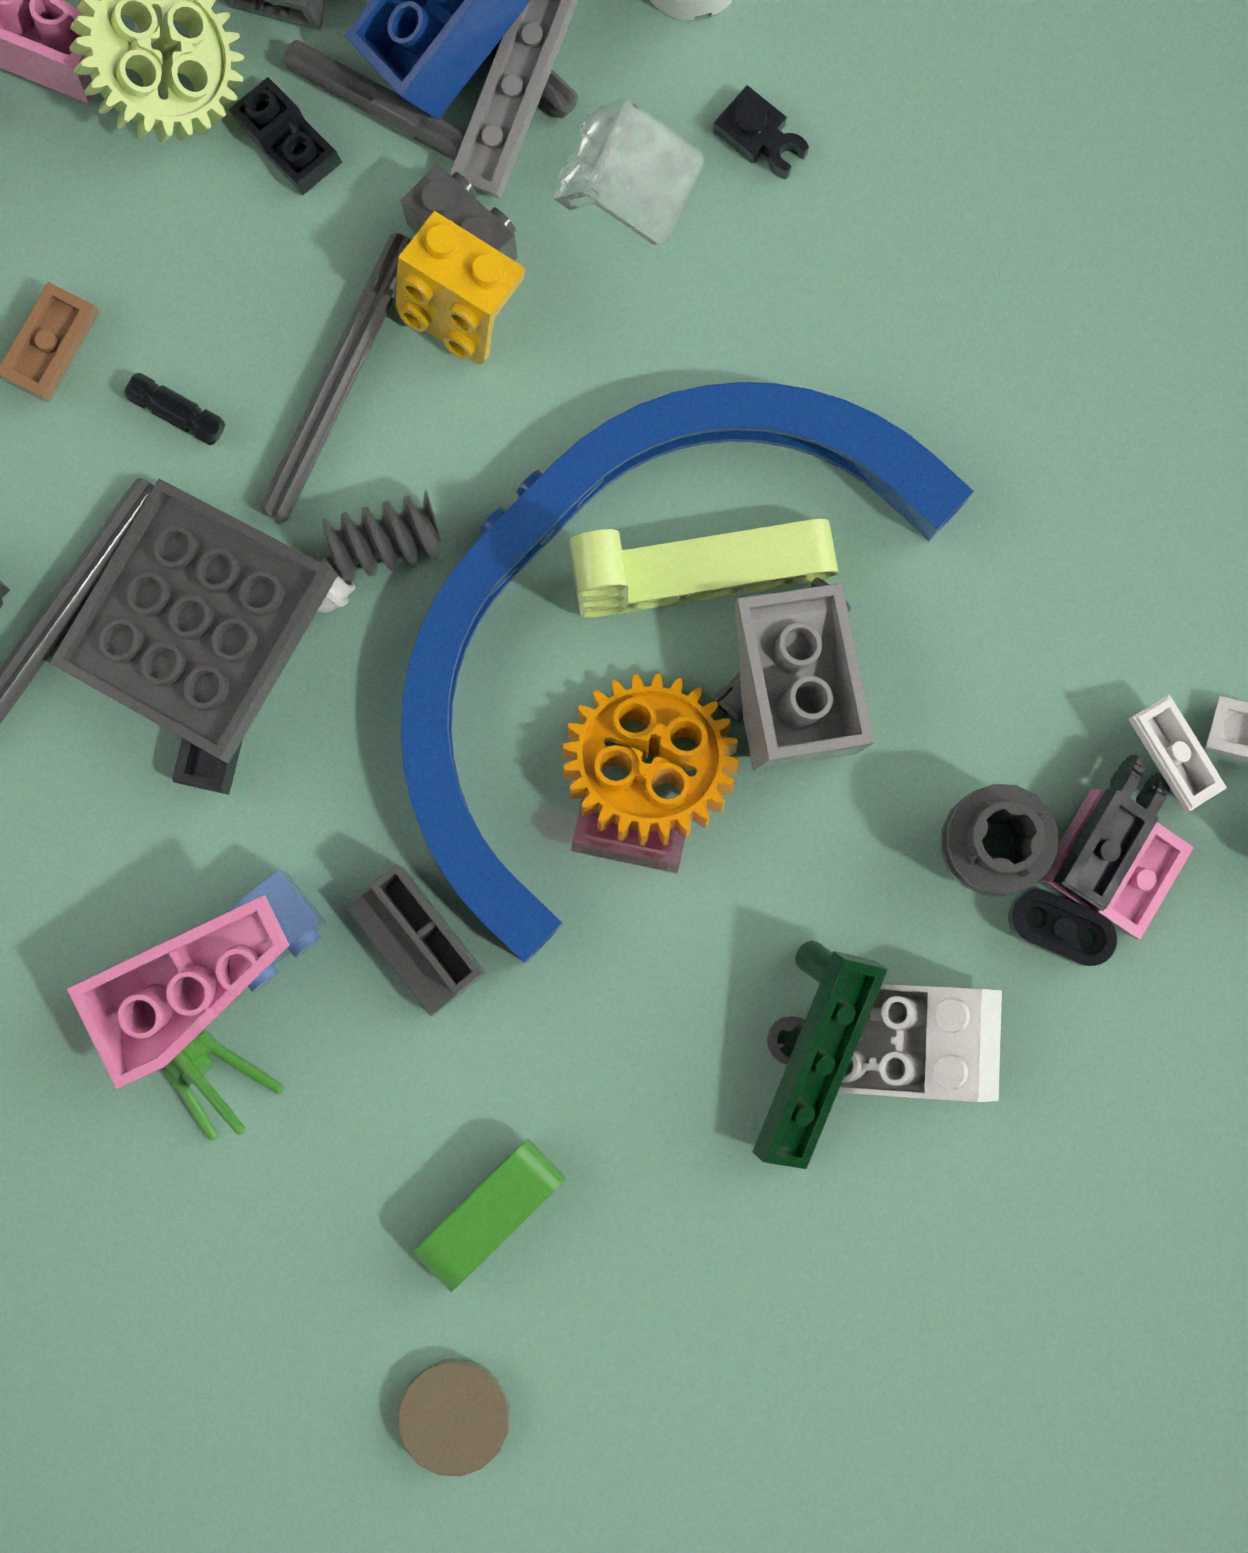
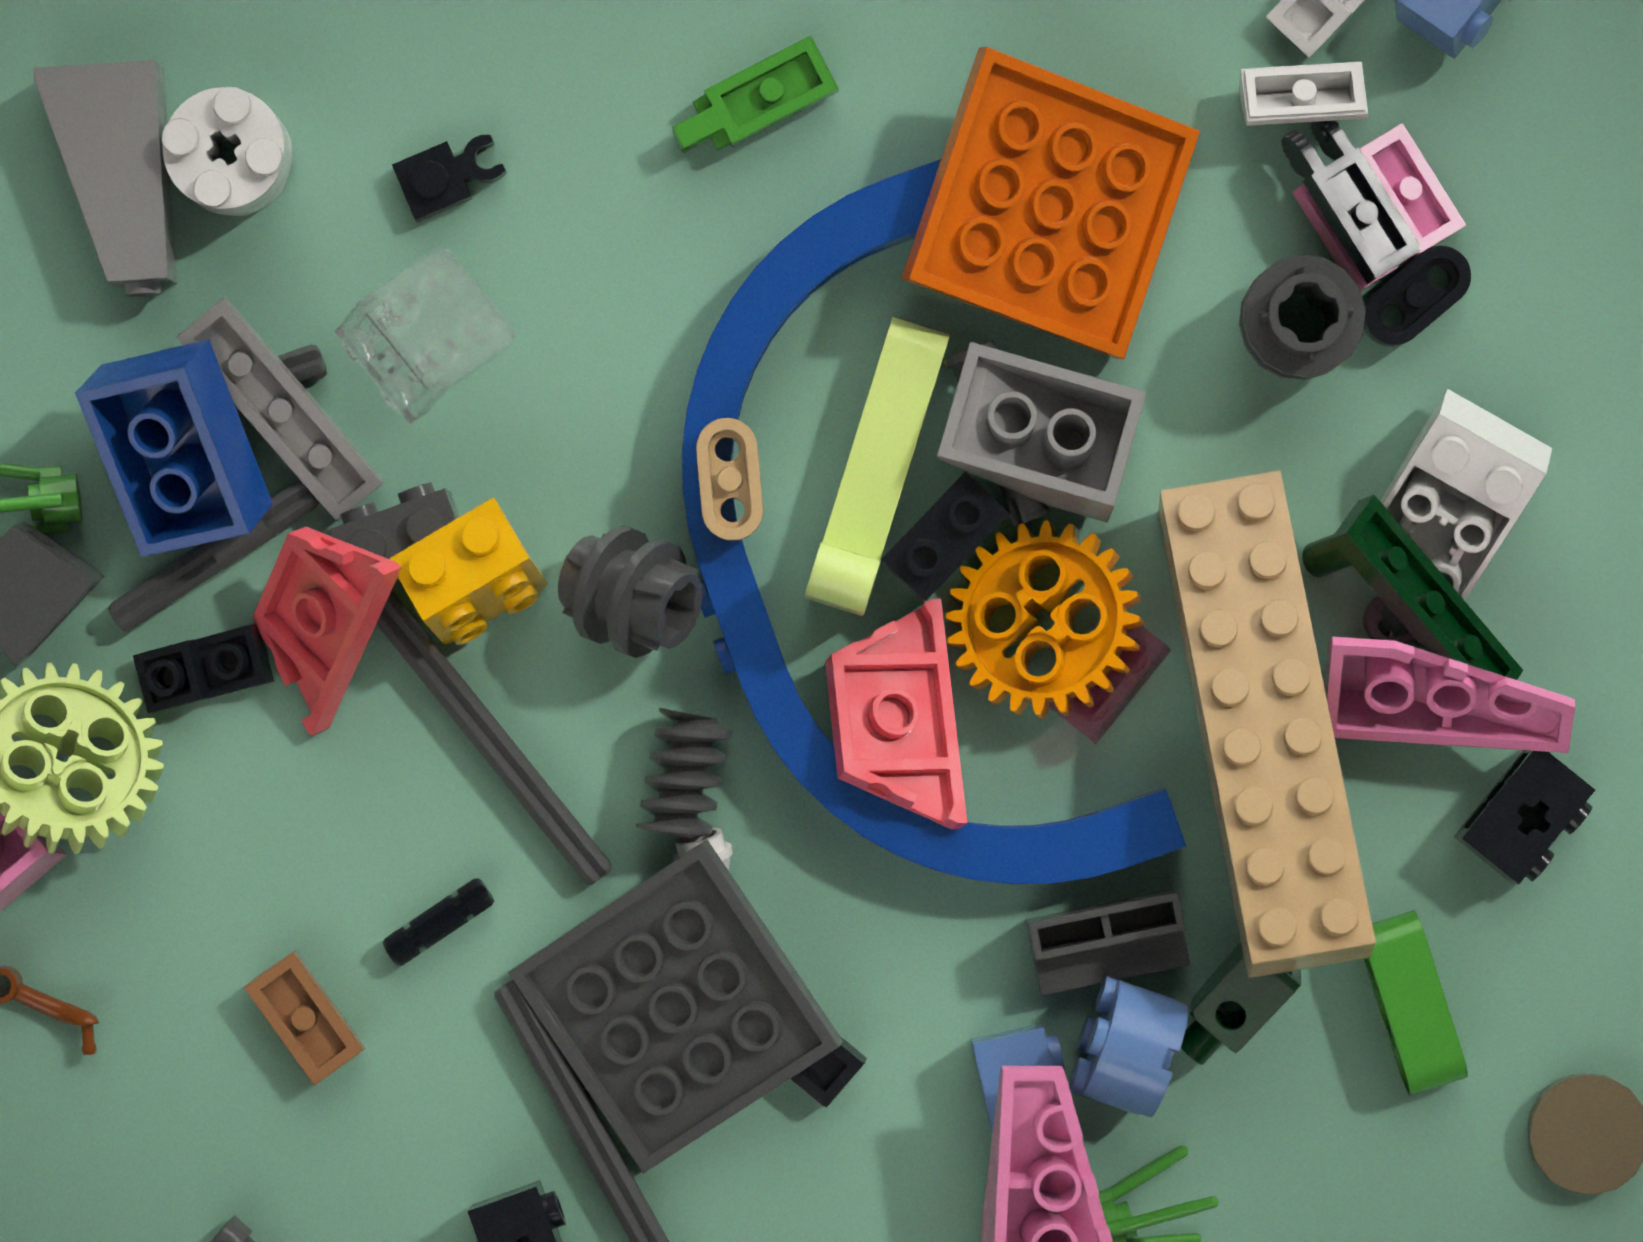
camera: 60 degrees left, 5 degrees up
(336, 997) = (1129, 1047): none -> medium blue brick
(366, 192) = (321, 616): none -> coral wing
(441, 1072) = (1257, 995): none -> dark green torso
(506, 418) = (630, 591): none -> dark grey piece
(512, 678) = (899, 717): none -> coral wing
(632, 448) = (729, 479): none -> tan plate
(650, 976) = (1265, 725): none -> tan brick
(674, 646) = (944, 537): none -> black brick
(719, 1220) = (1494, 824): none -> black brick
(743, 1095) = (1424, 698): none -> bright pink wedge
(944, 333) = (758, 97): none -> bright green hinge
(984, 595) = (1050, 203): none -> orange plate

